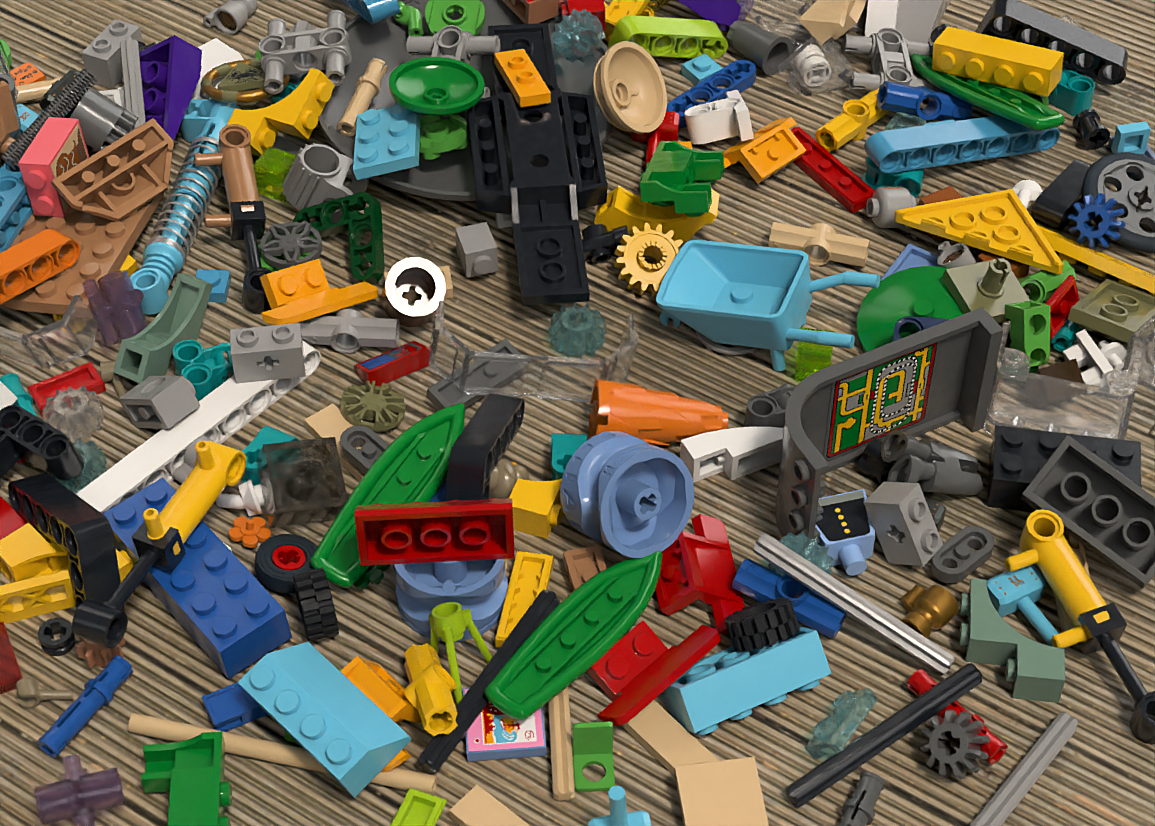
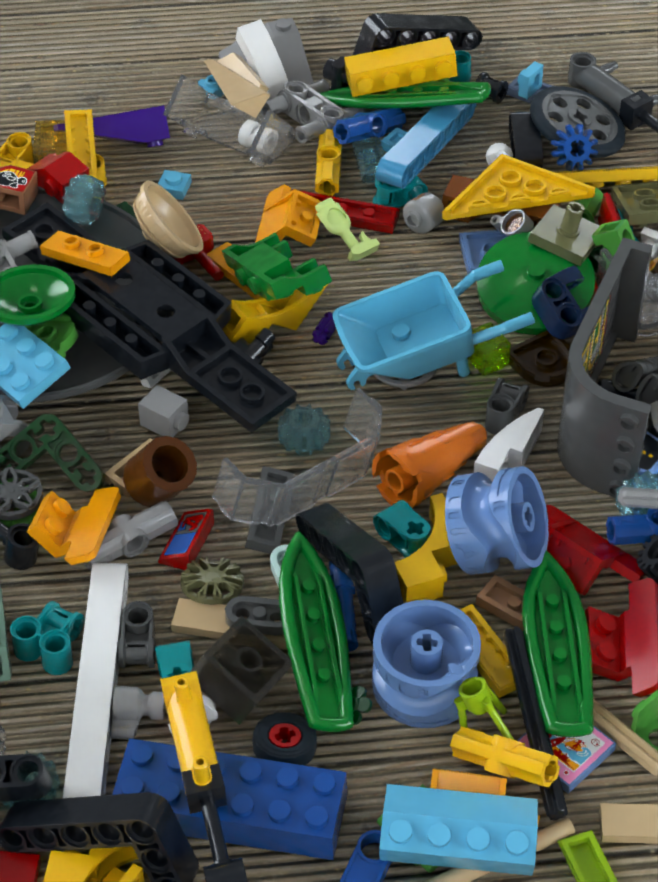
camera: 40 degrees left, 0 degrees up
(160, 401) = (48, 683): light grey brick -> none
(249, 531) = (225, 738): orange plant -> none
(267, 353) = (106, 586): light grey brick -> none
(270, 407) = (137, 640): none -> dark grey piece
(315, 604) = (352, 752): black tyre -> none
(435, 531) = (416, 630): red slope -> none
(633, 264) = (303, 344): yellow gear -> none
(671, 36) = (132, 169): lime beam -> none
(719, 120) = (239, 211): white tile -> none
(736, 75) = (202, 198): blue beam -> none
(759, 45) = (201, 142): dark grey plant -> none
(798, 173) = (339, 223): none -> yellowish green piece
(820, 244) = (401, 267): tan piece -> none

